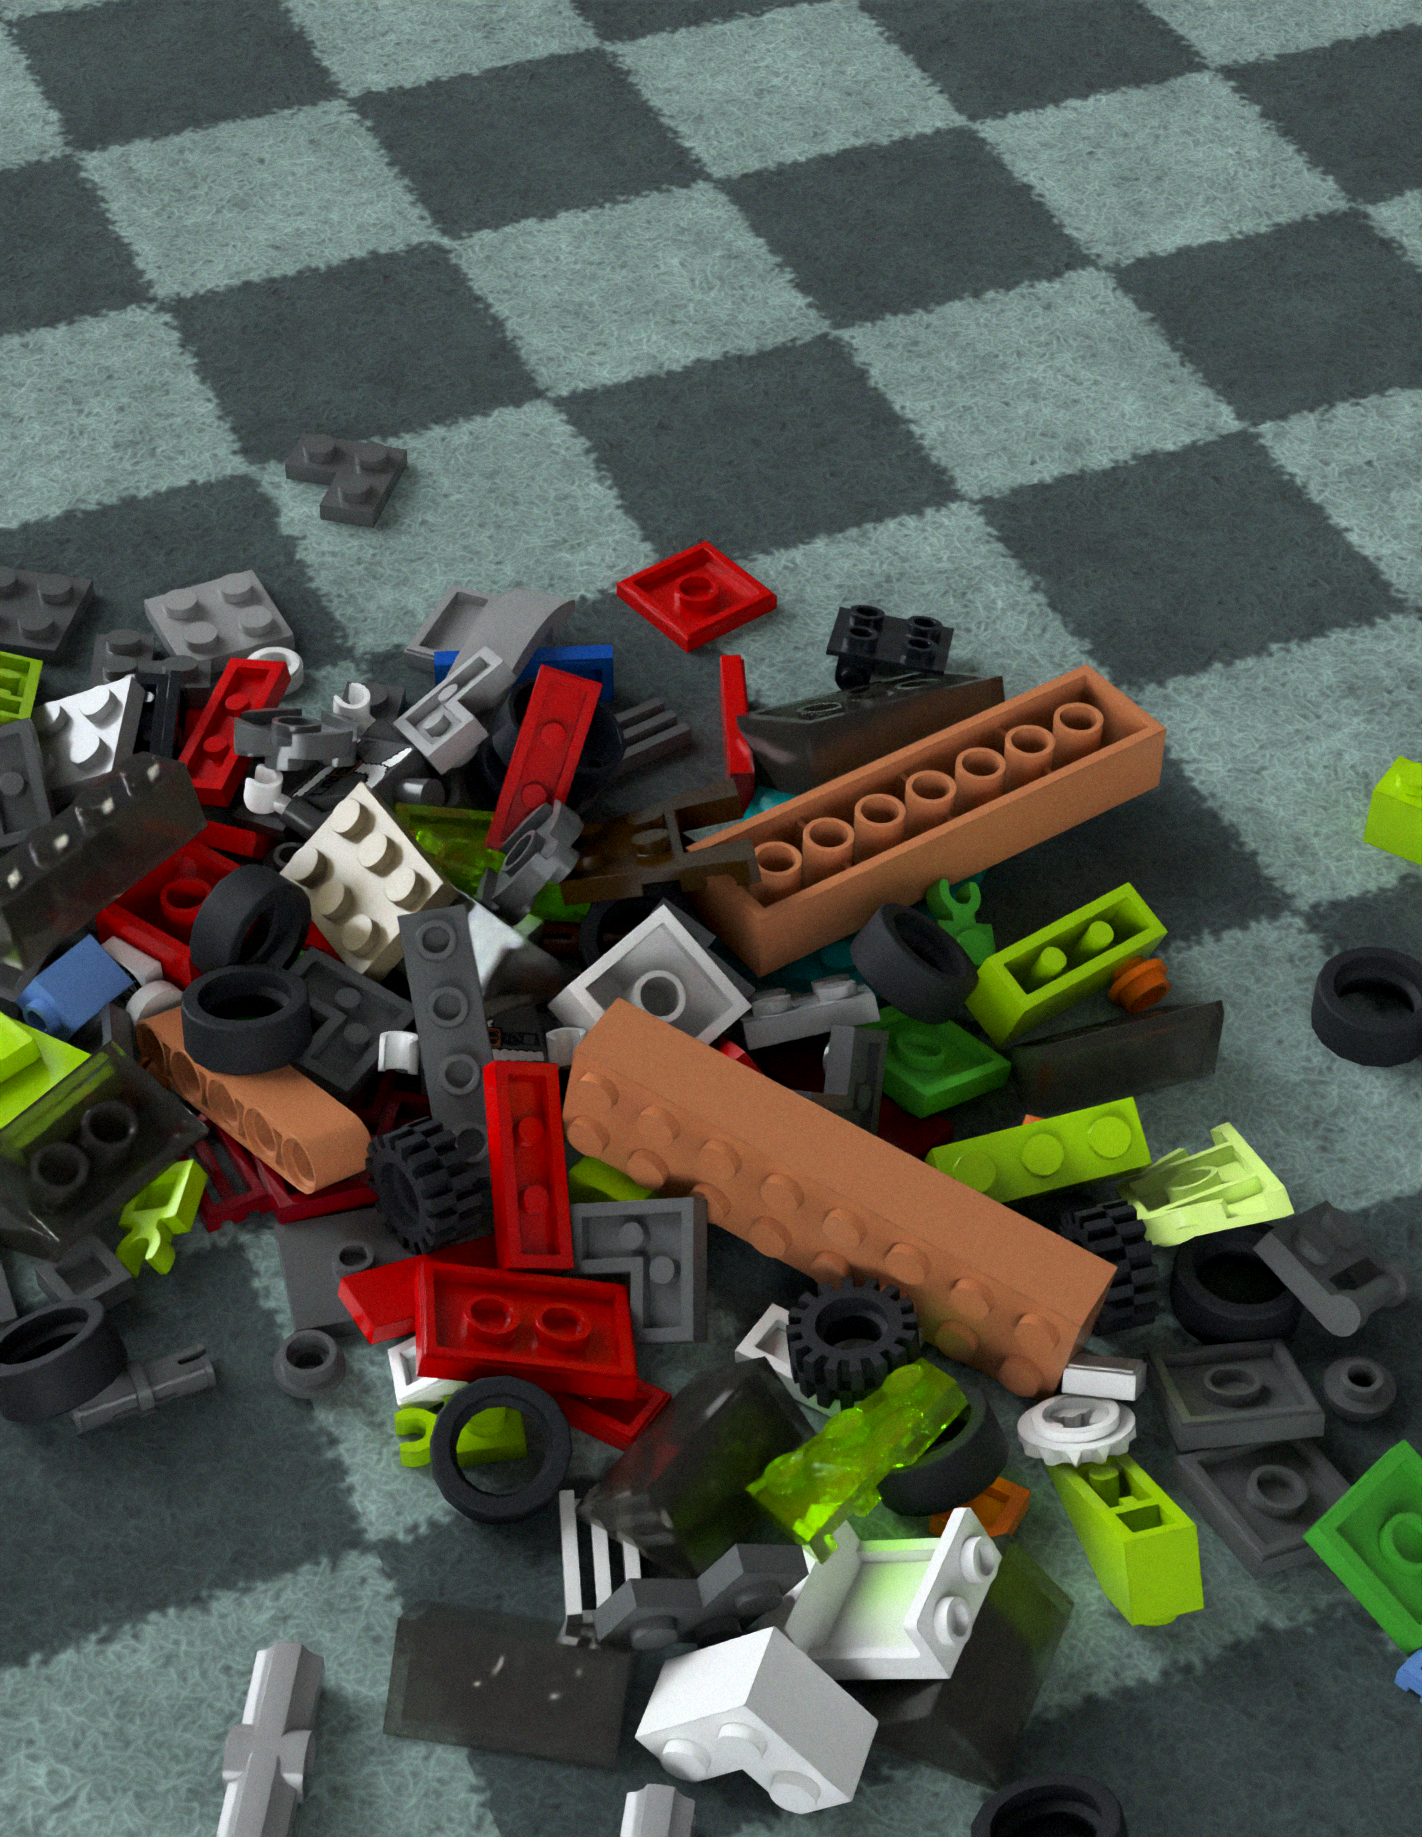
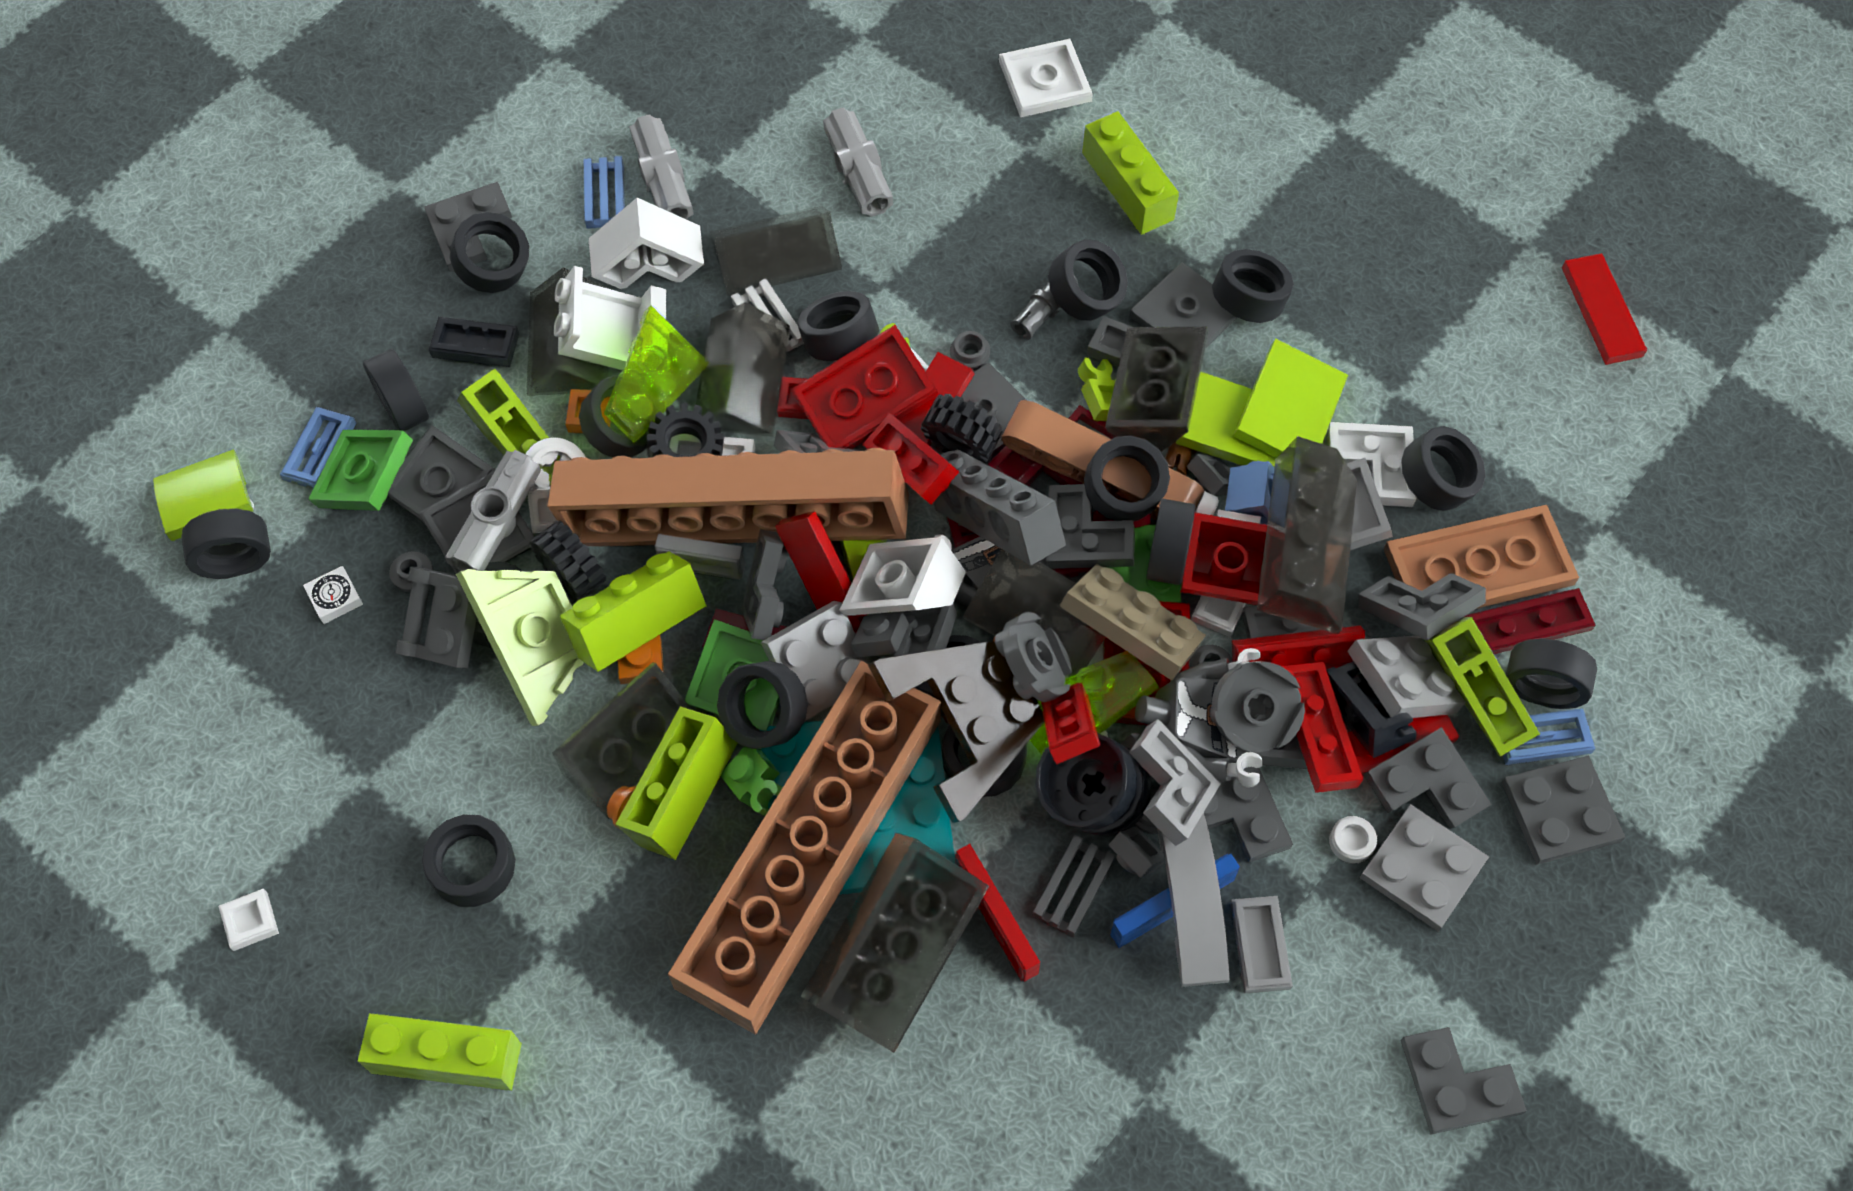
camera: 155 degrees right, 20 degrees up
(696, 596) = (1112, 1074): red tile -> none
(704, 1609) = (695, 287): dark grey plate -> none
(869, 637) = (927, 1046): black hinge -> none
(1138, 1719) = (474, 341): none -> black plate
(1202, 1342) = (505, 492): none -> light grey piece
(1309, 1636) = (396, 390): none -> black tyre

